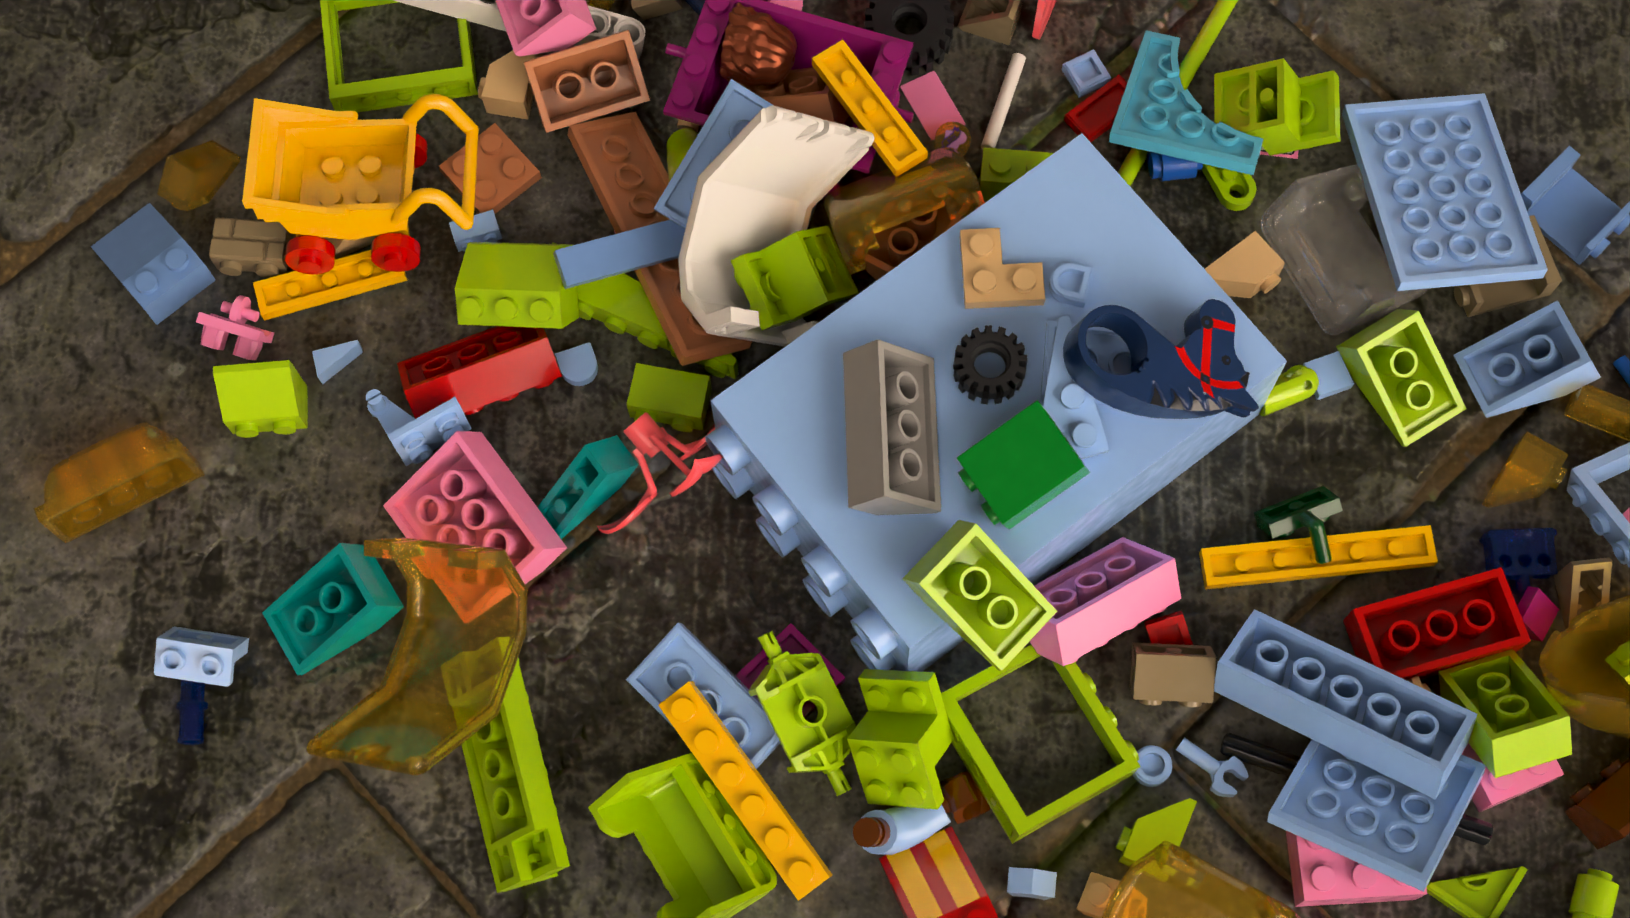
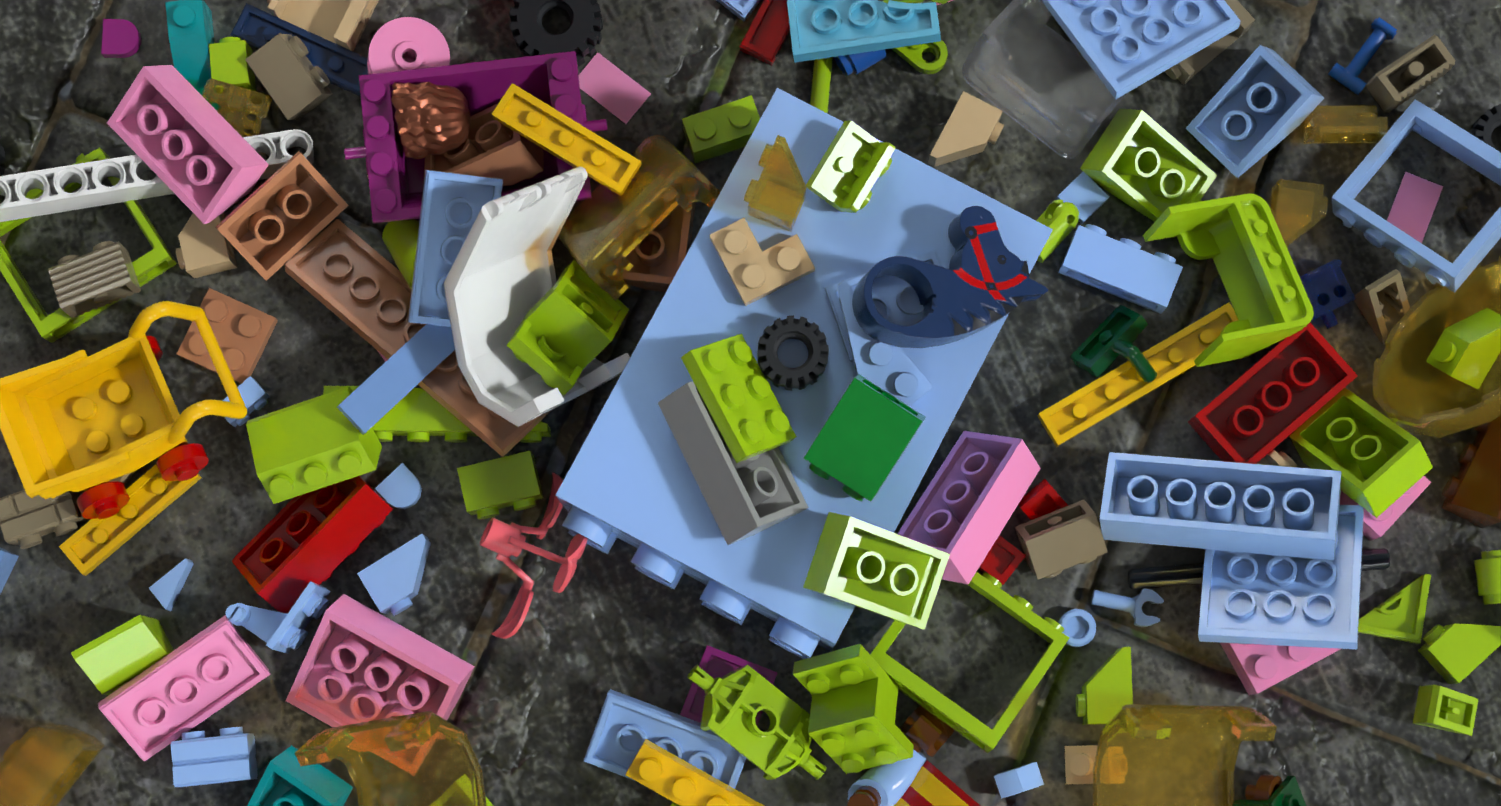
camera: 25 degrees left, 10 degrees up
(249, 338) = (48, 601): bright pink hips -> none
(292, 526) = (213, 759): none -> light blue brick
(298, 451) = (184, 688): none -> bright pink tile
(398, 66) = (94, 278): none -> dark tan brick
(537, 436) = (397, 576): none -> light blue slope
(587, 483) = (467, 602): teal slope -> none
(920, 379) = (738, 397): none -> lime plate
(954, 136) = (646, 117): clear yellow tile -> none
(1003, 101) = (676, 57): white bar -> none
(1042, 216) = (780, 188): none -> clear yellow slope
(1070, 283) = (831, 241): light blue tile -> none
(1104, 666) = (1002, 560): none -> red plate
(1117, 224) = (850, 168): none -> lime bracket
(1337, 451) = (1121, 268): none -> light blue brick
(1466, 495) = (1252, 266): none -> lime windscreen
(1537, 613) = (1351, 341): magenta tile -> none

